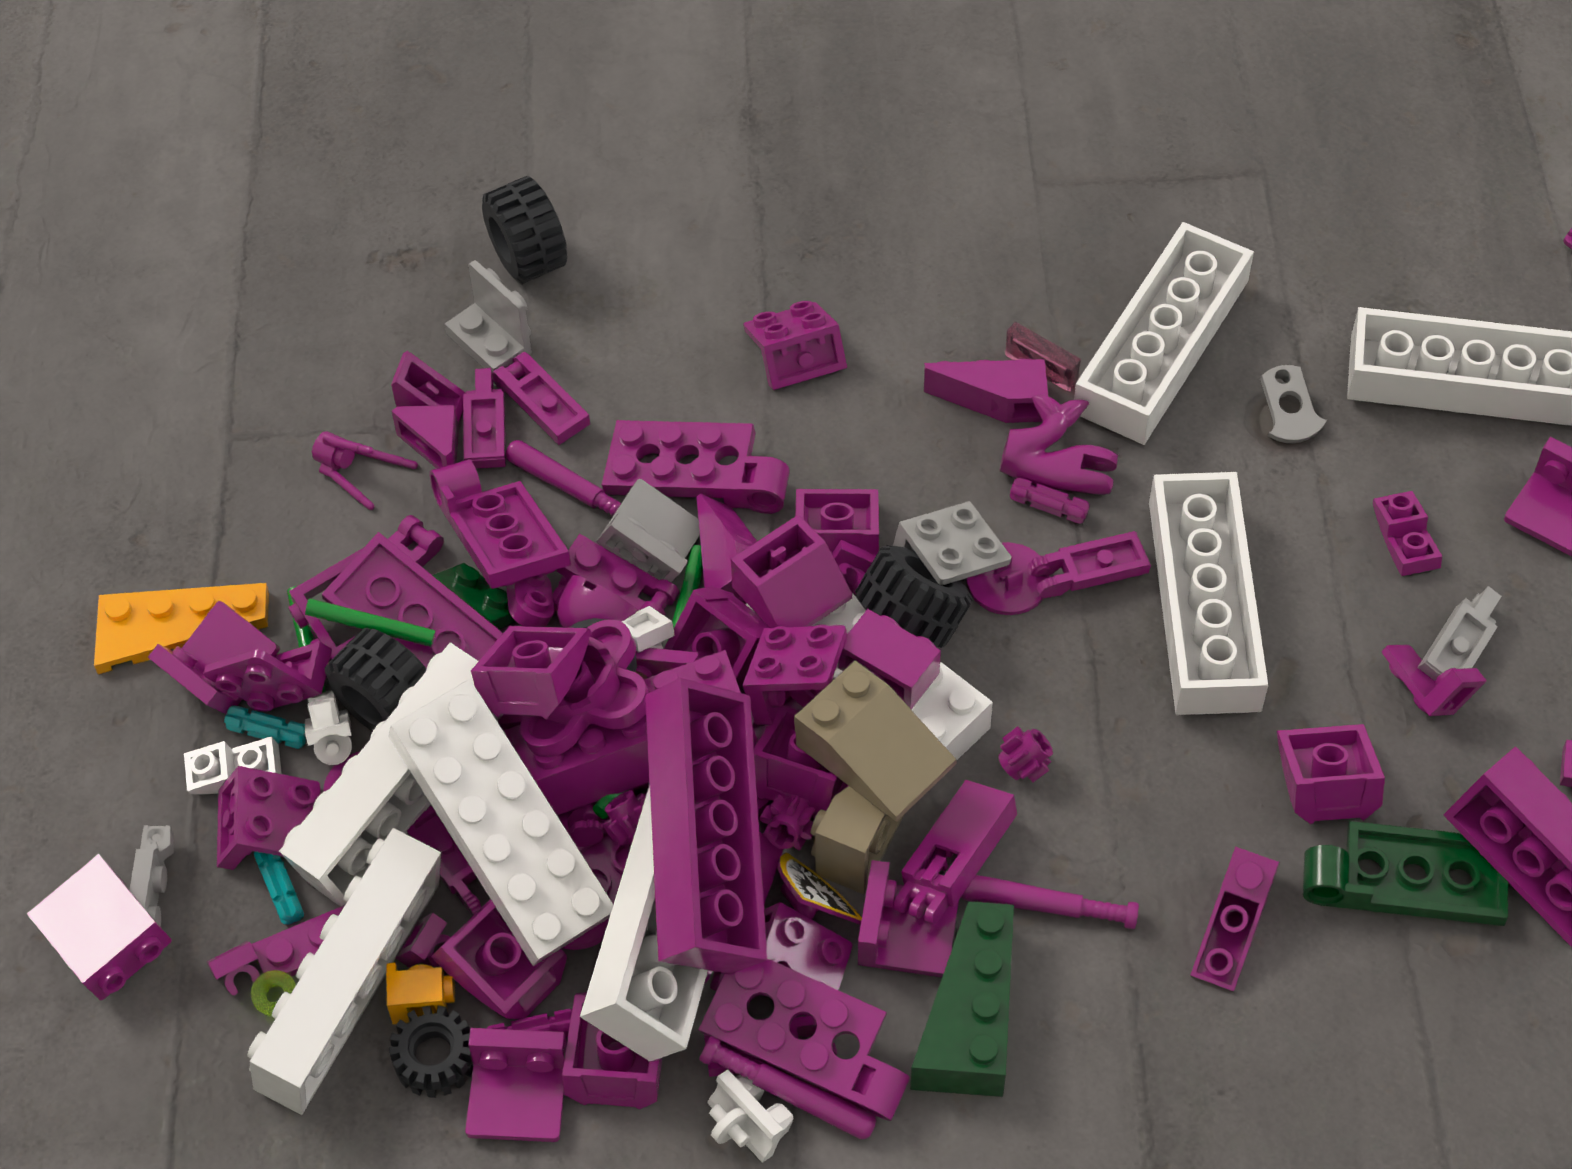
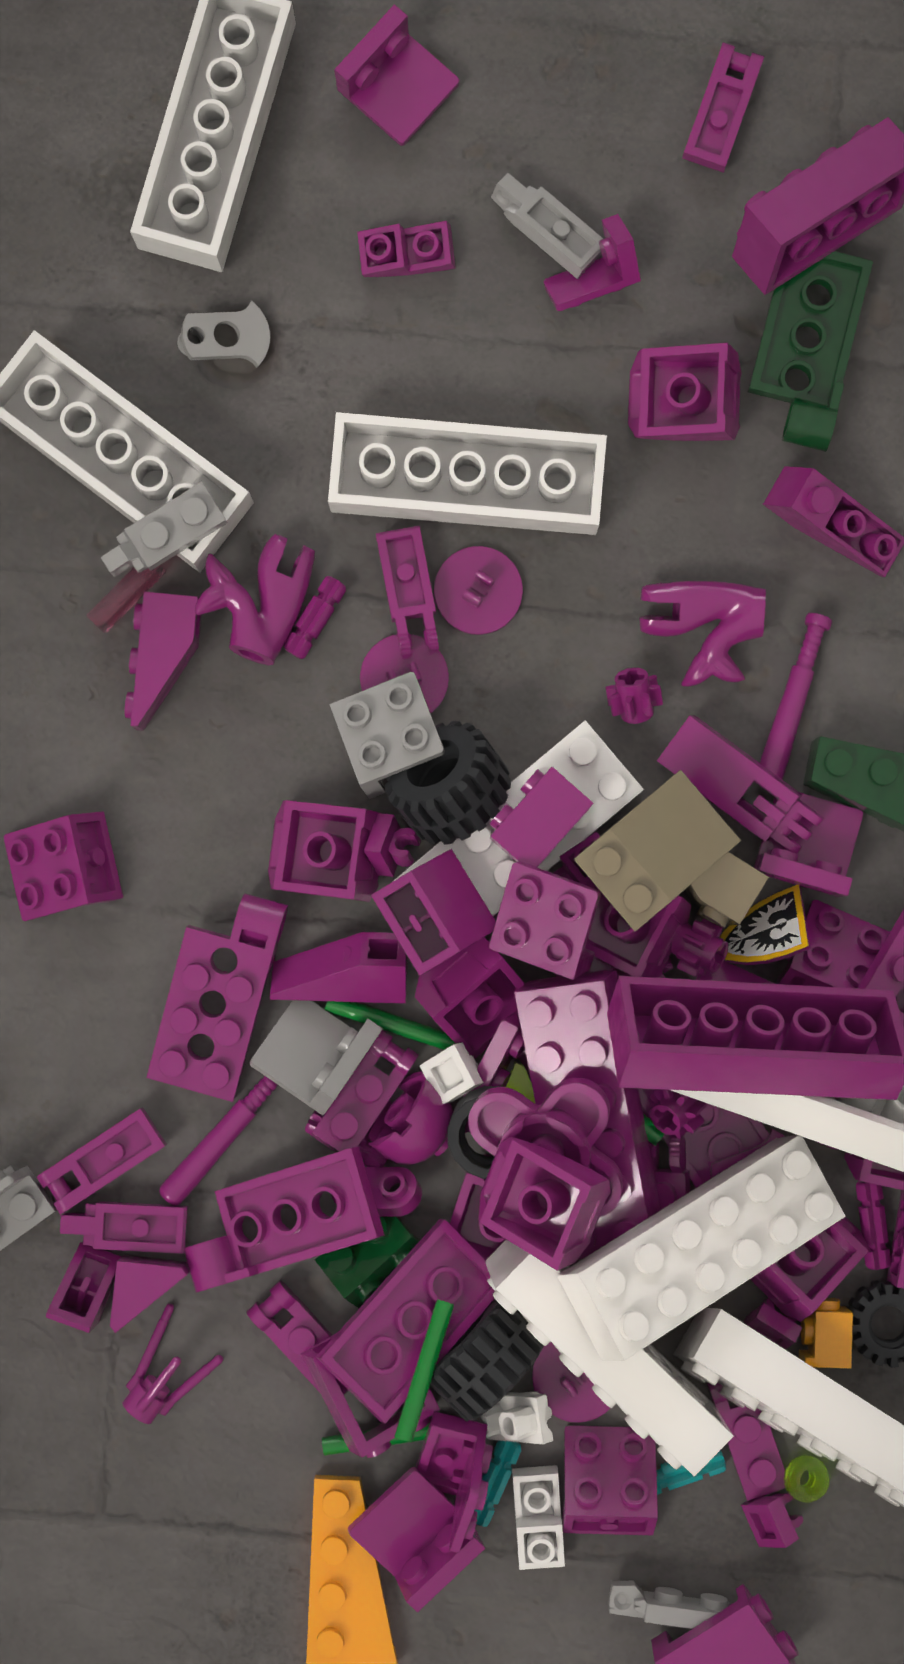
camera: 80 degrees left, 30 degrees up
(1098, 356) = (166, 532): none -> light grey hinge
(1101, 628) = (478, 590): none -> magenta piece
(1128, 841) = (698, 603): none -> magenta piece

